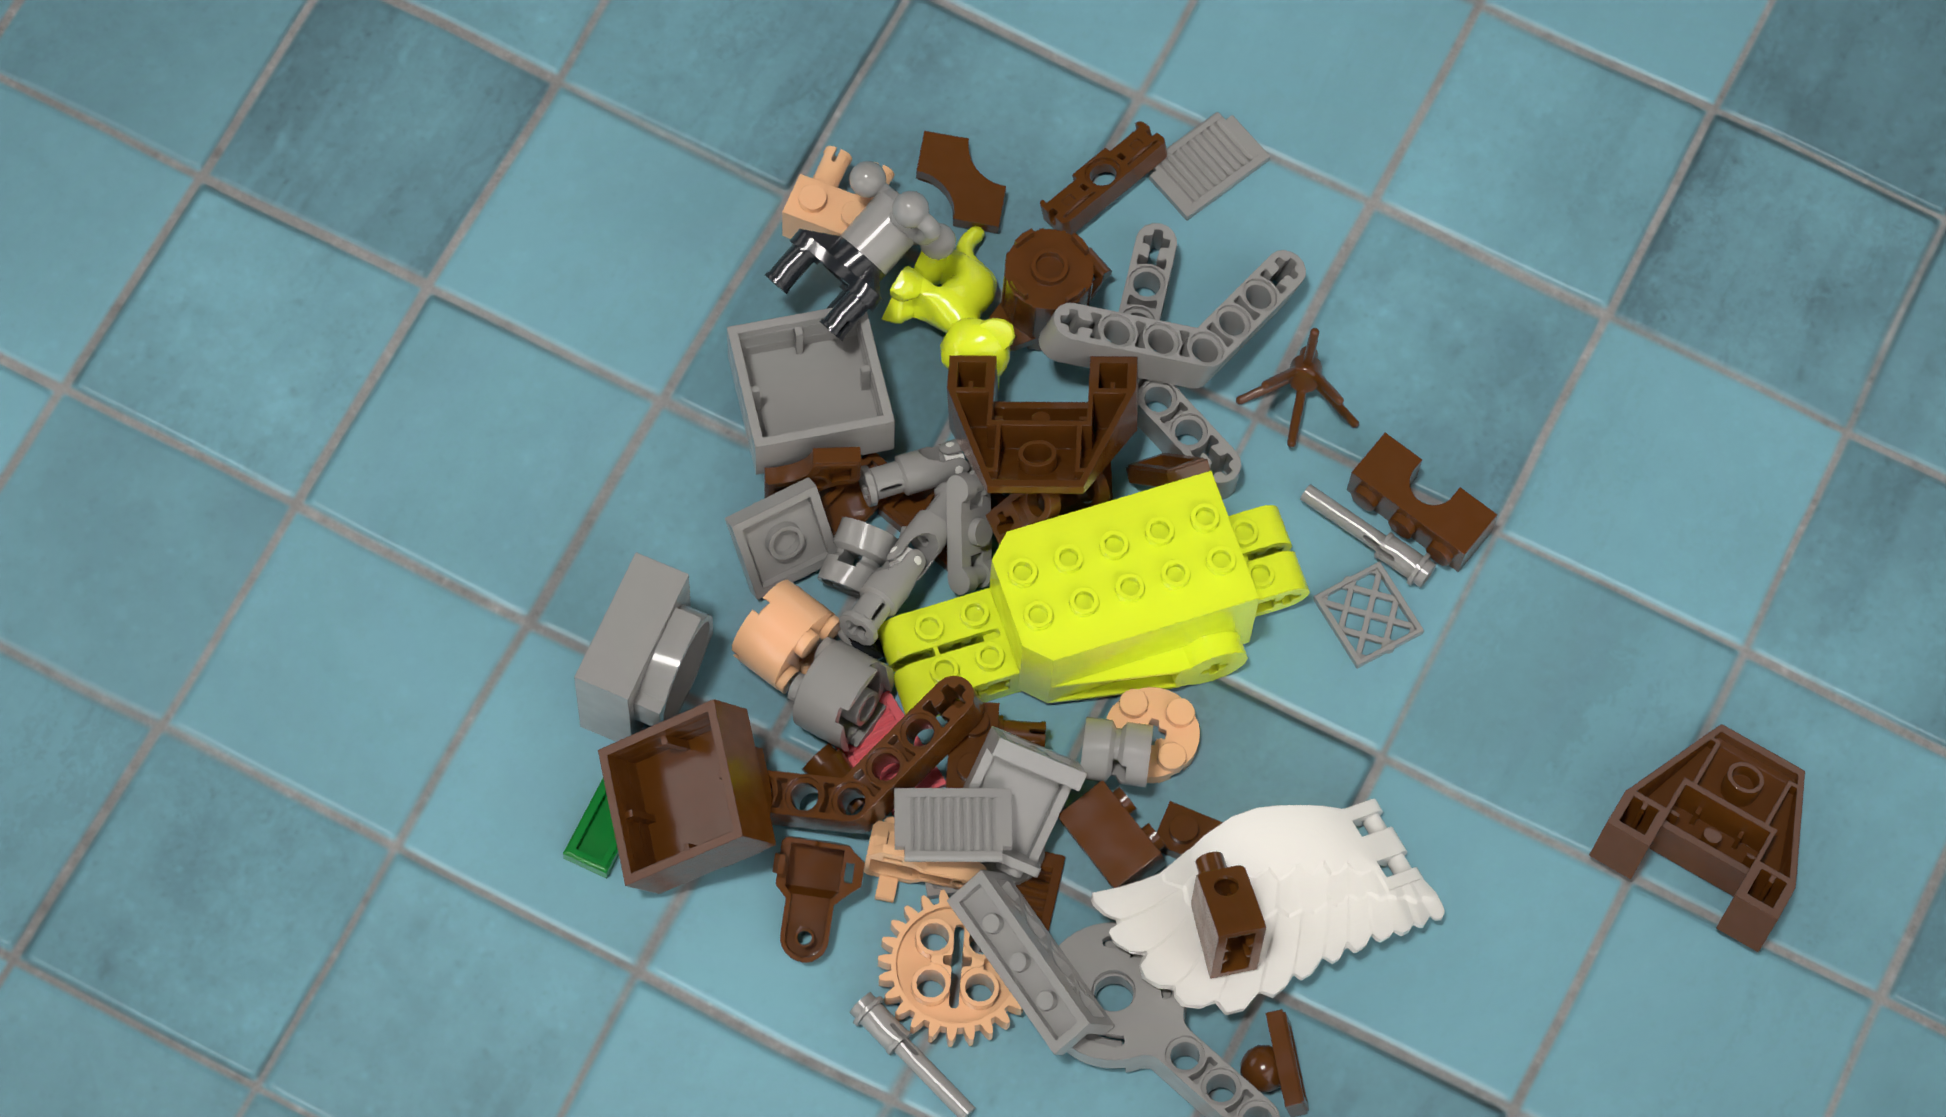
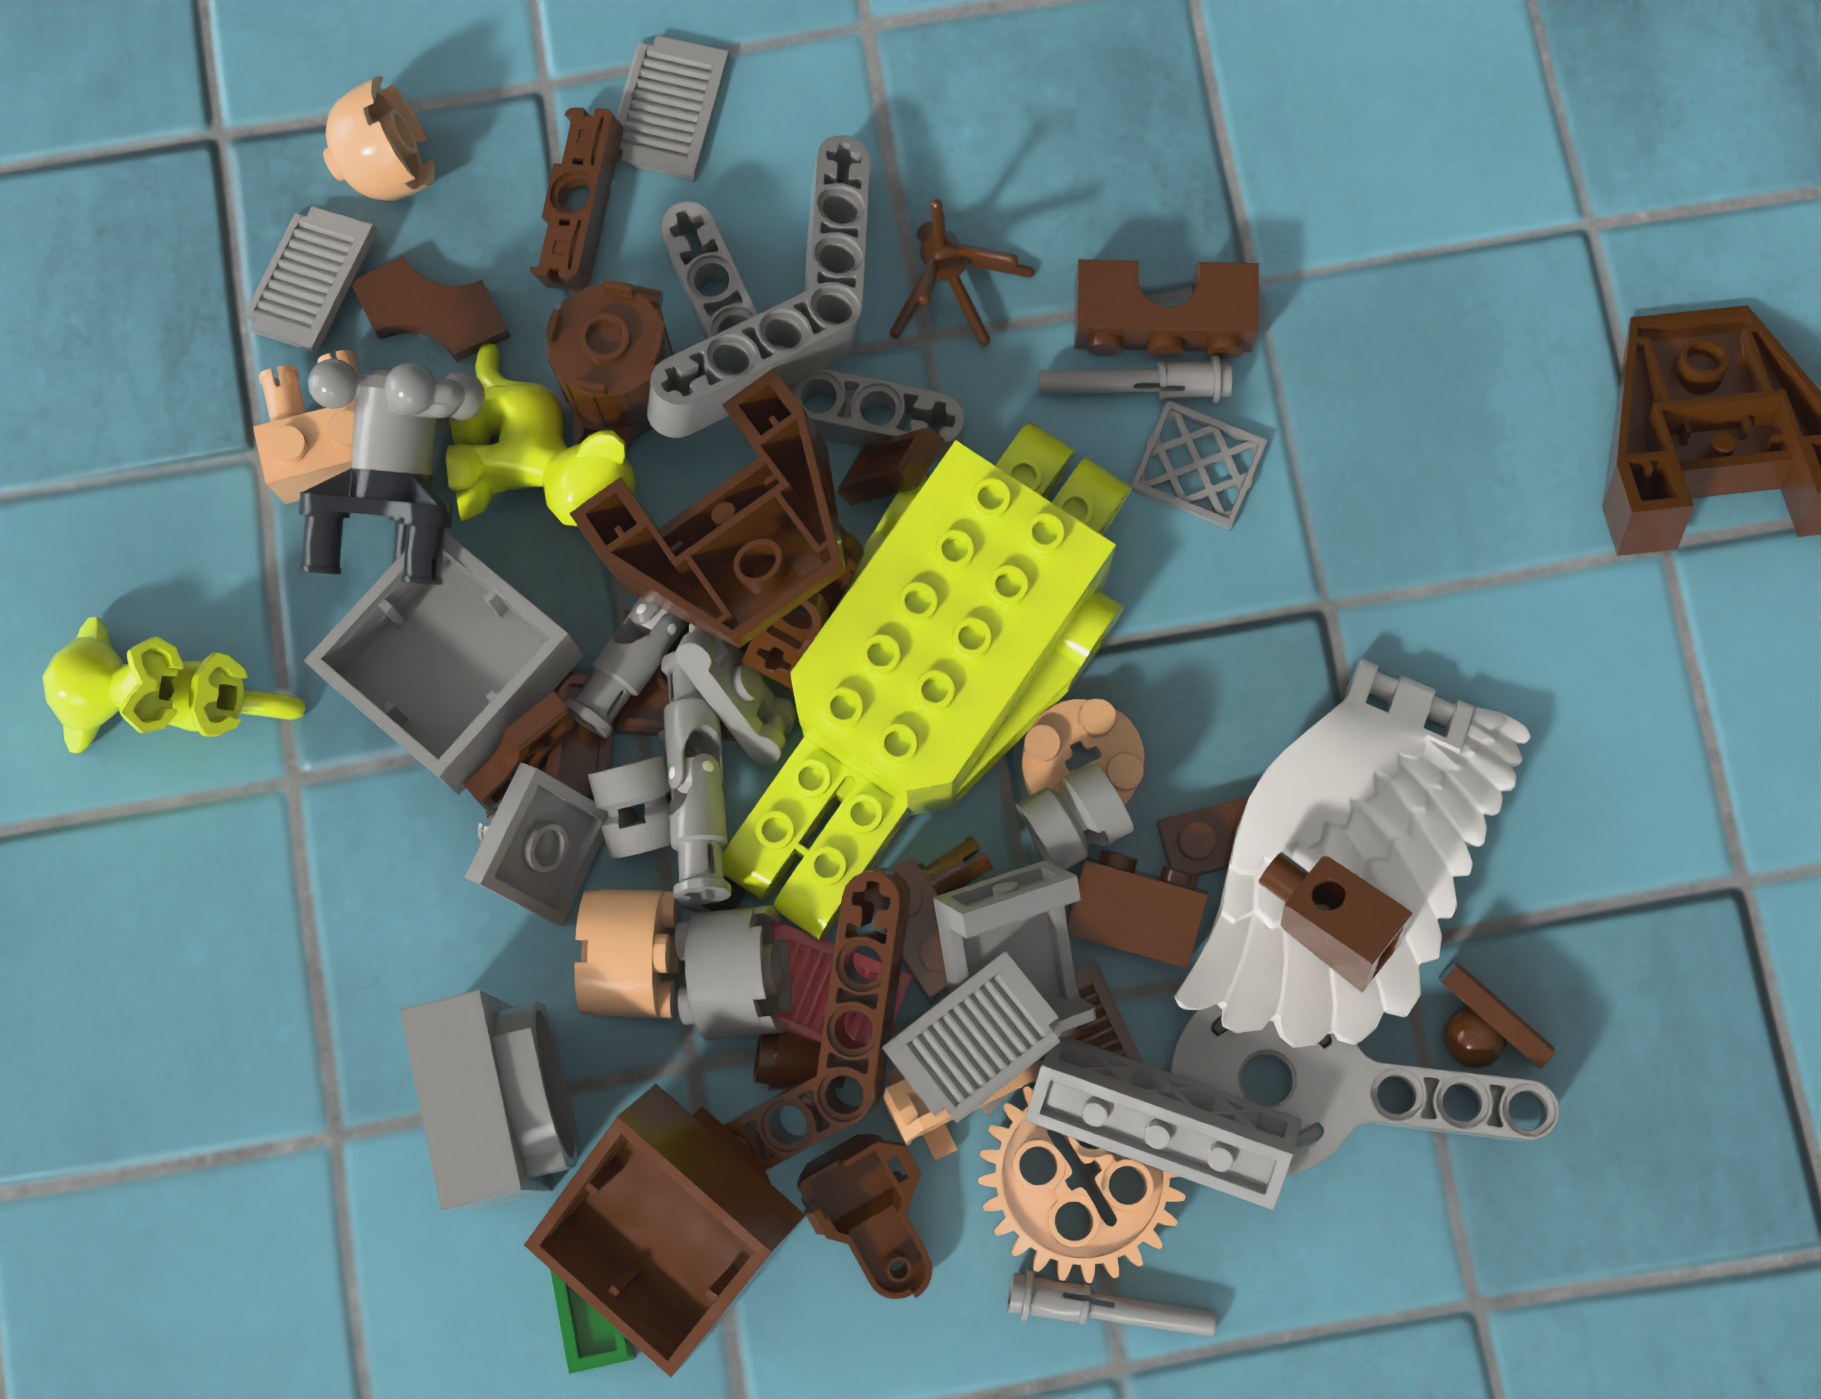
camera: 30 degrees left, 10 degrees up
(589, 256) = (154, 690): none -> neon yellow animal
(901, 111) = (309, 278): none -> light grey window
(1004, 59) = (375, 145): none -> light nougat cylinder

